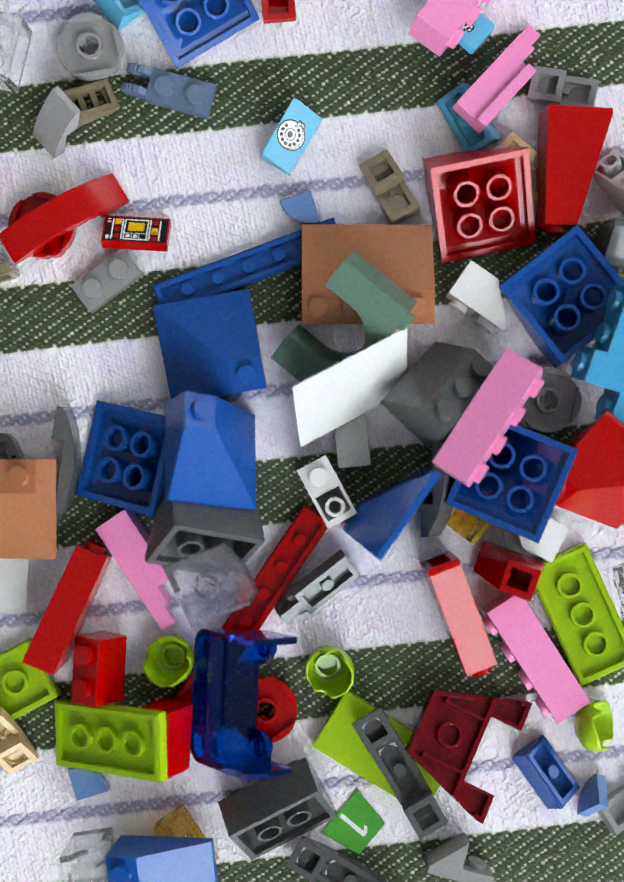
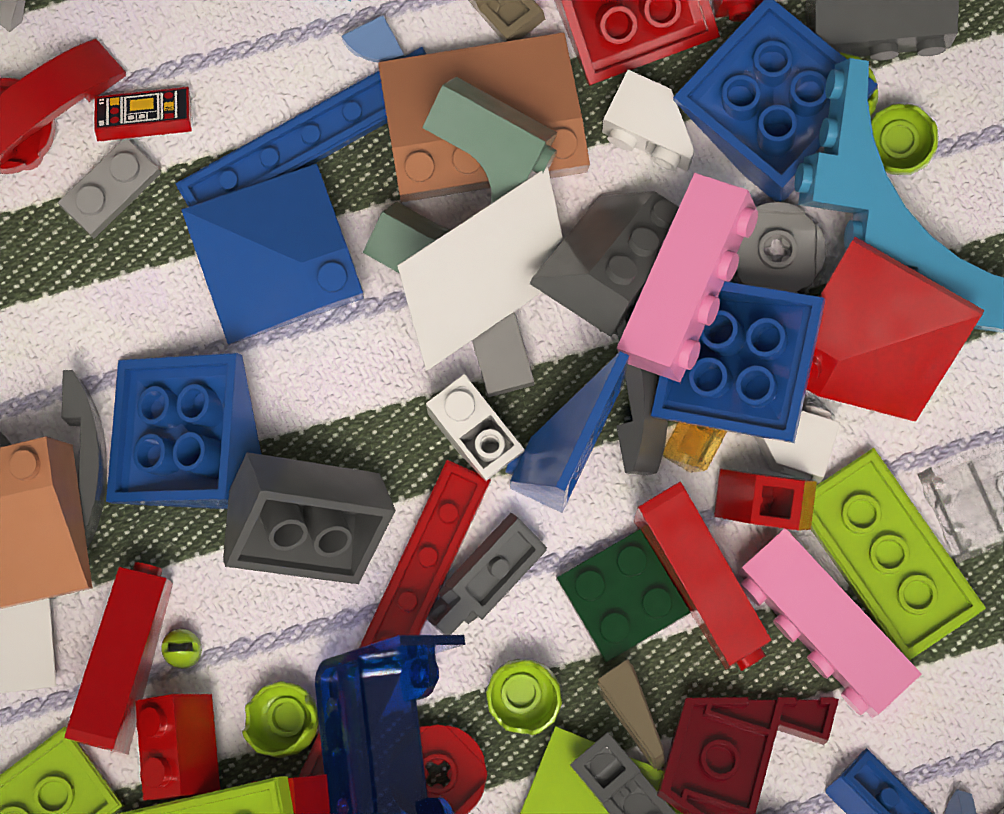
camera: 10 degrees left, 10 degrees down
(112, 592) = (181, 659): none -> lime hinge
(128, 545) = (222, 593): bright pink piece -> none
(209, 452) = (295, 393): blue slope -> none
(211, 584) = (324, 585): clear slope -> none
(397, 688) = (626, 700): none -> dark tan slope
(404, 612) = (623, 596): none -> dark green plate
(594, 725) = (937, 713): lime hair -> none

